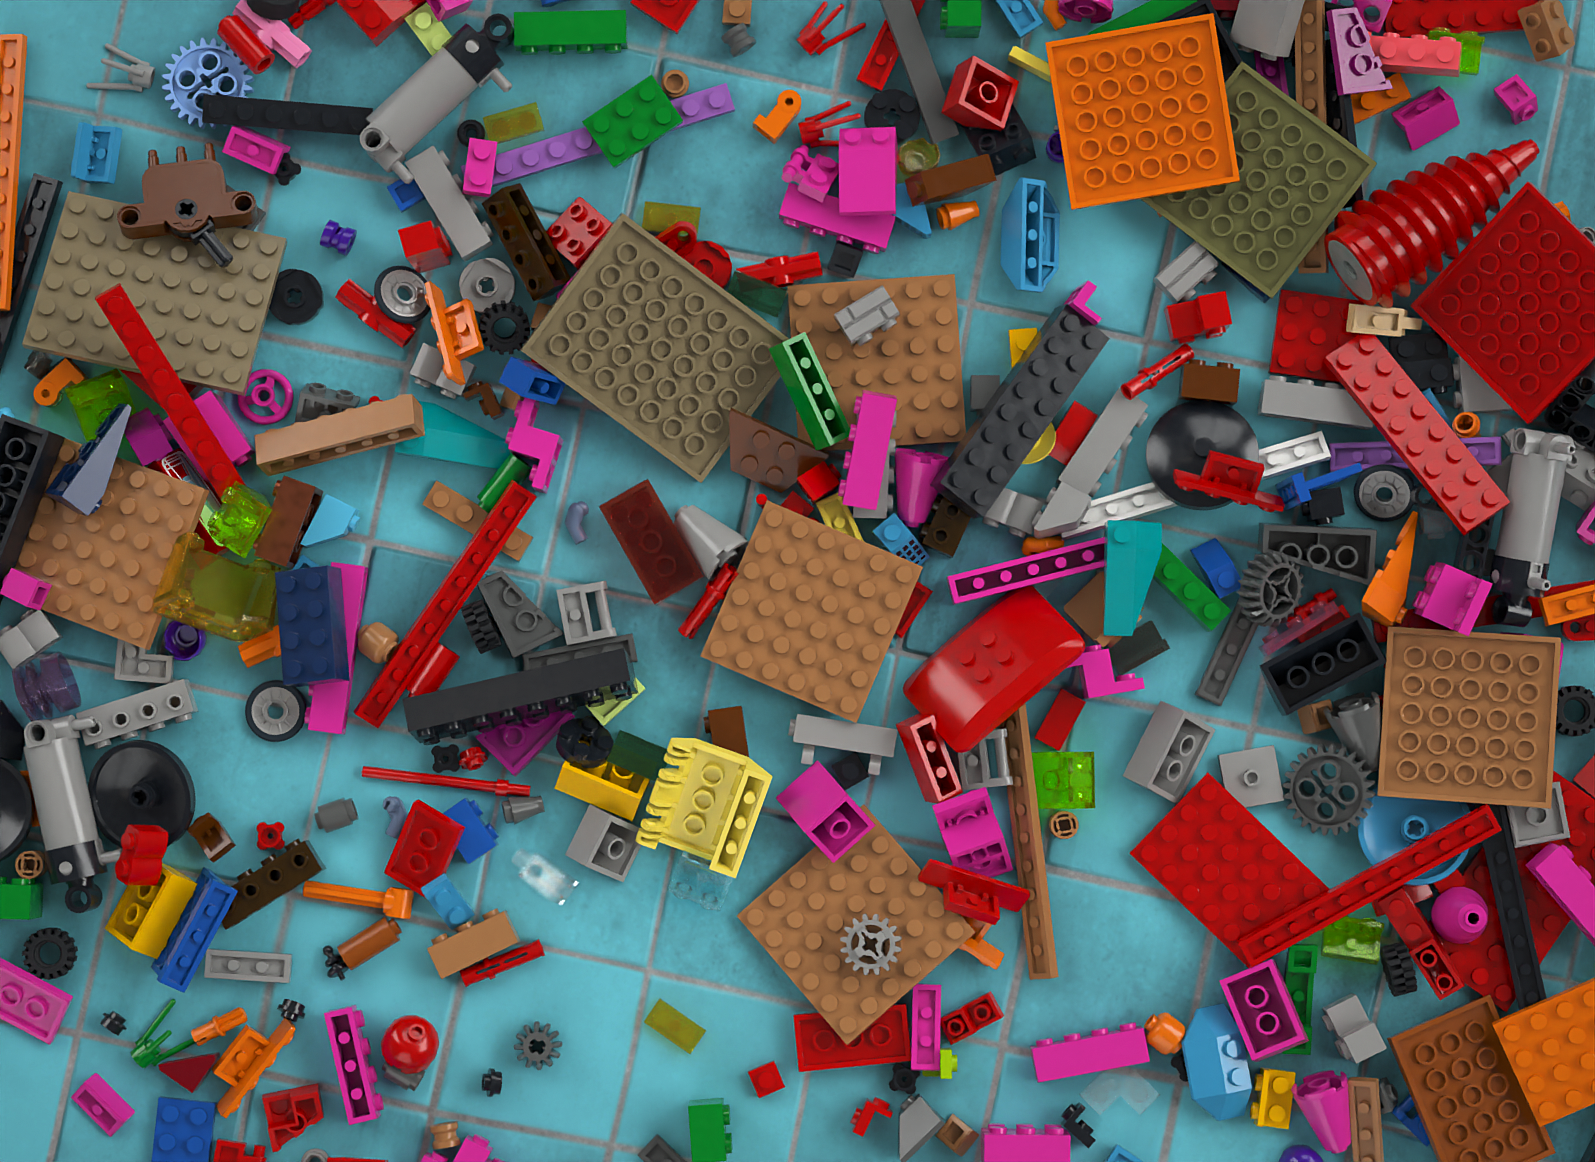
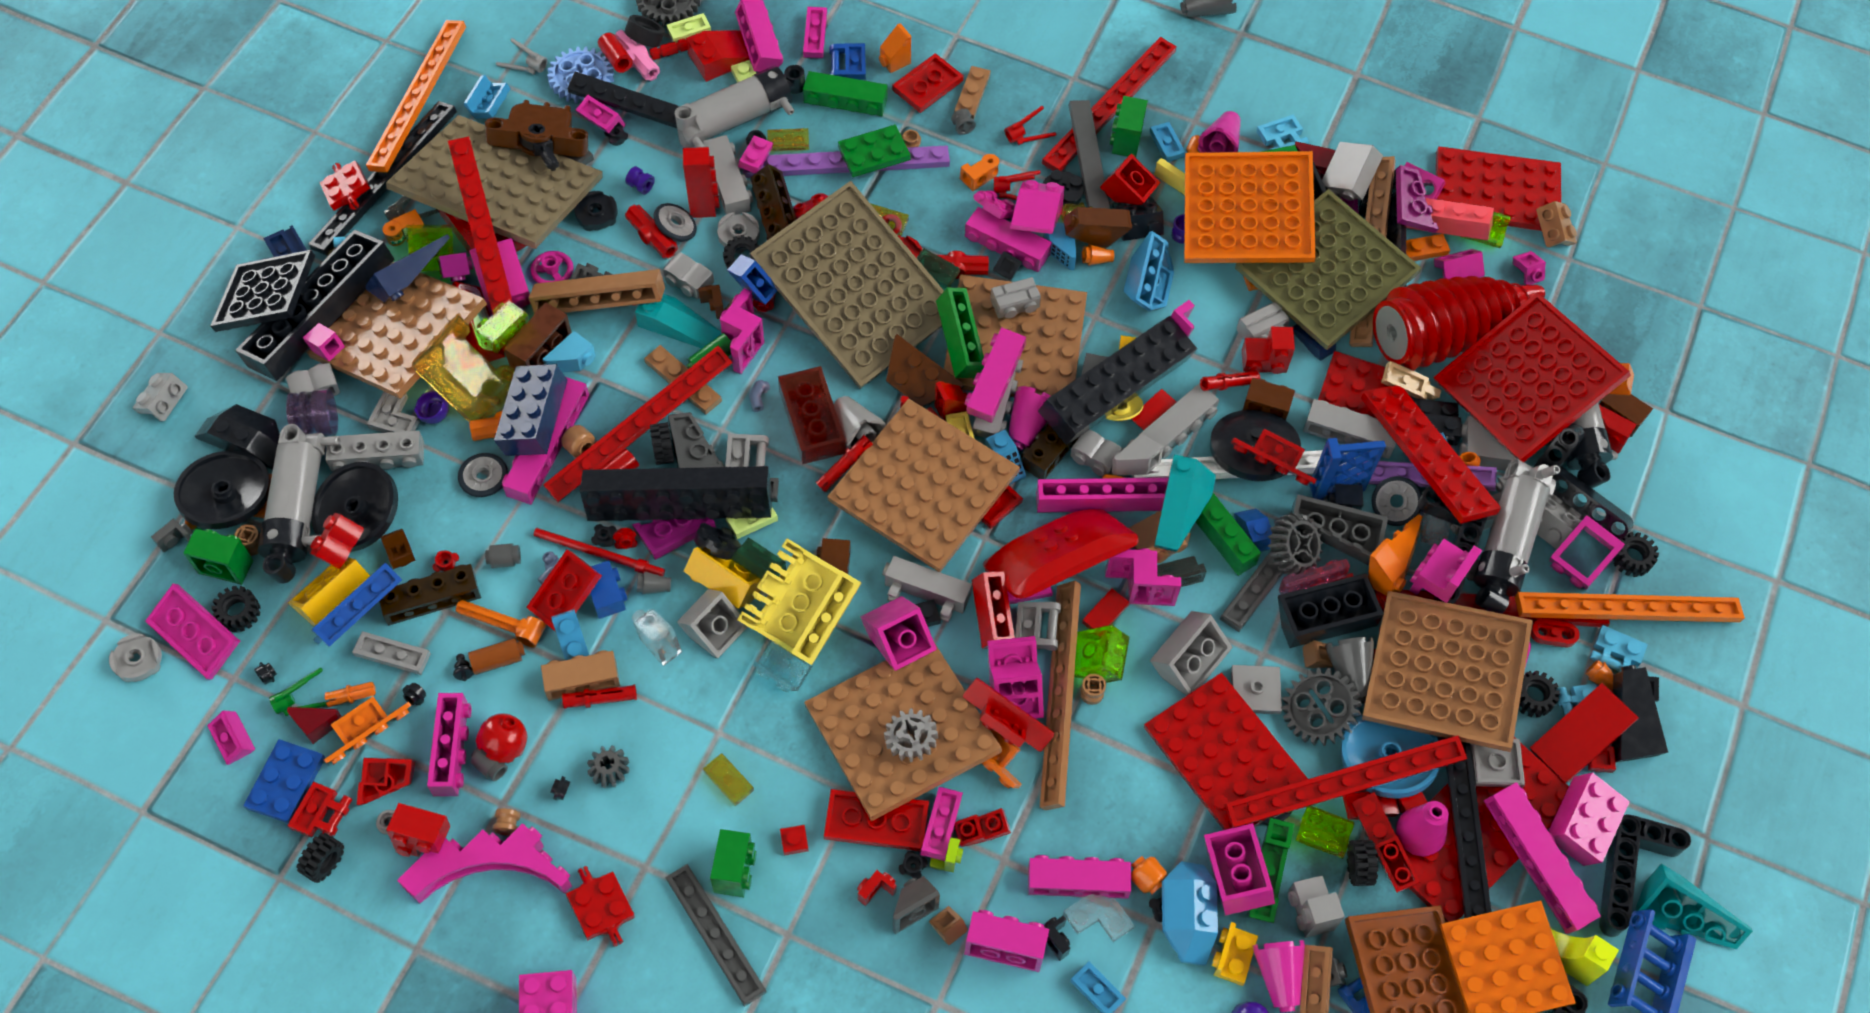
camera: 10 degrees right, 25 degrees down
(456, 331) = (704, 247): orange bracket -> none

